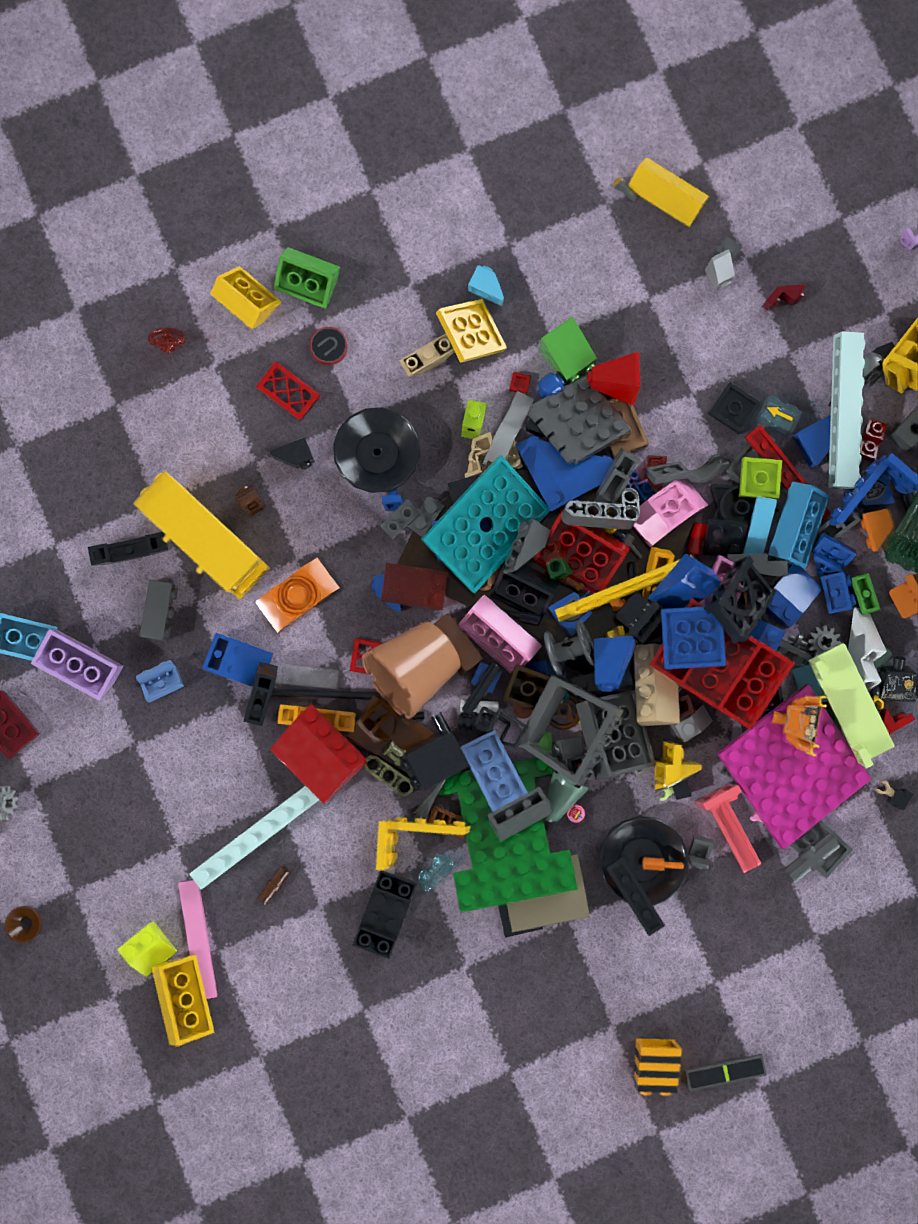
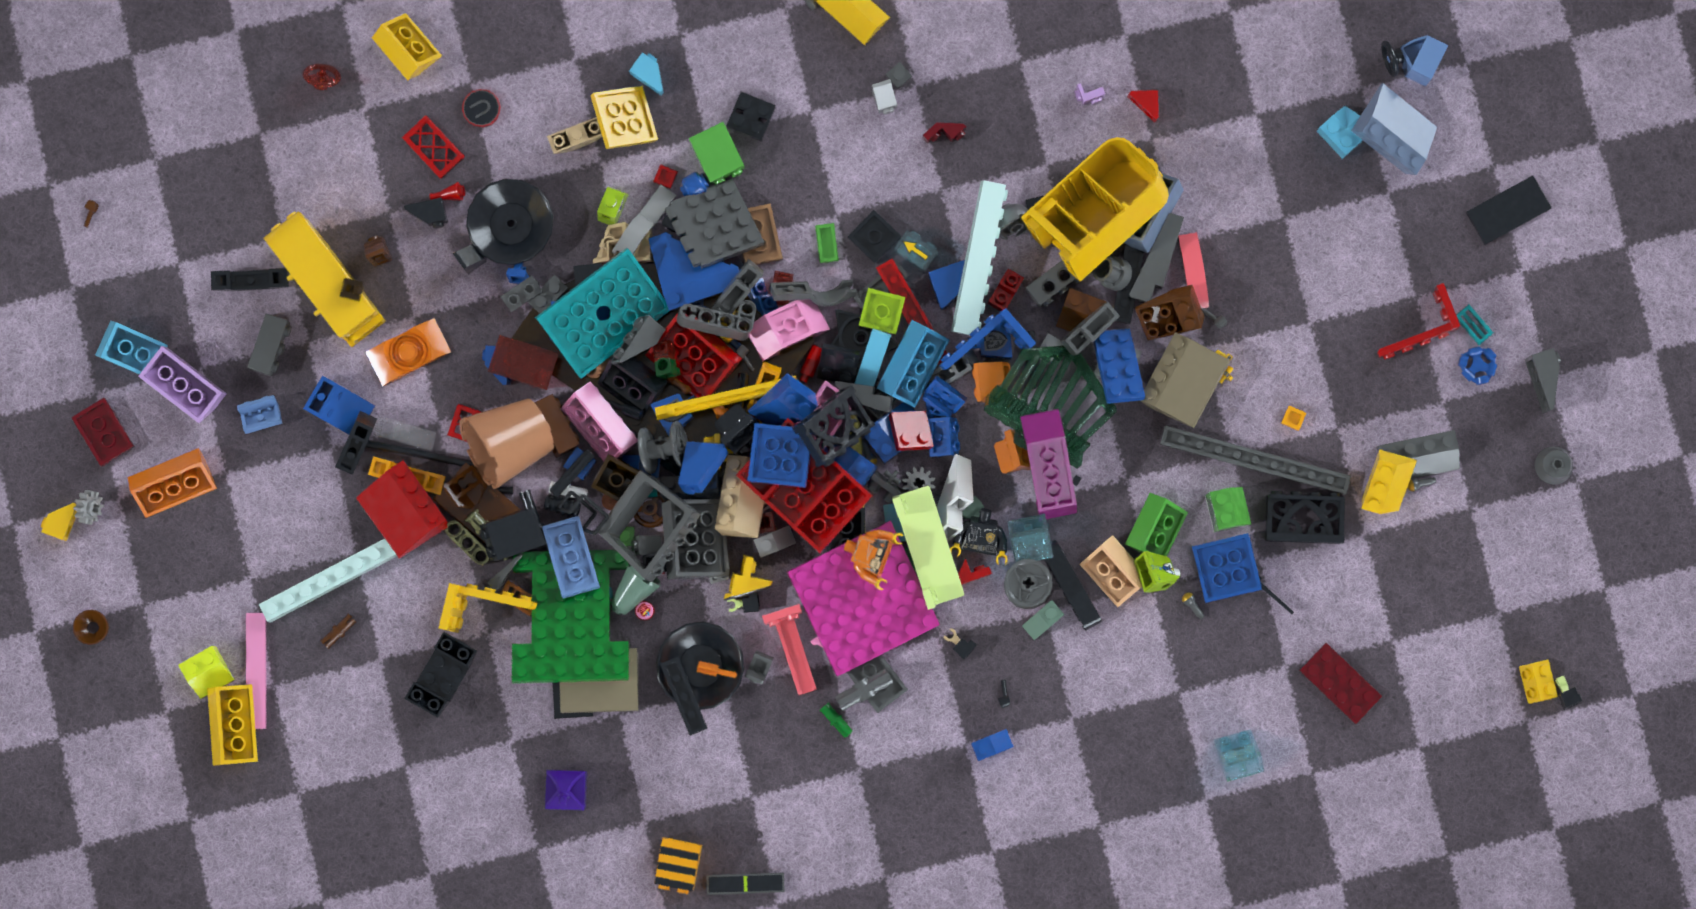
camera: 15 degrees right, 0 degrees up
(82, 764) = (171, 483): none -> orange slope
(231, 540) = (351, 289): none -> dark brown tile
(306, 277) = (470, 36): bright green slope -> none
(315, 431) = (453, 192): none -> red cone
(342, 492) = (469, 258): none -> black slope
(428, 878) = (490, 648): clear light blue hinge -> none
(519, 814) = (585, 598): dark grey brick -> none
(530, 1009) = (566, 790): none -> dark purple piece
(592, 315) = (750, 120): none -> black brick
(617, 378) = (759, 188): red slope -> none
(688, 422) = (826, 243): none -> bright green tile
(785, 891) = (836, 720): none -> green axle
(808, 591) = (911, 430): none -> plate
(865, 593) = (967, 442): bright green slope -> none

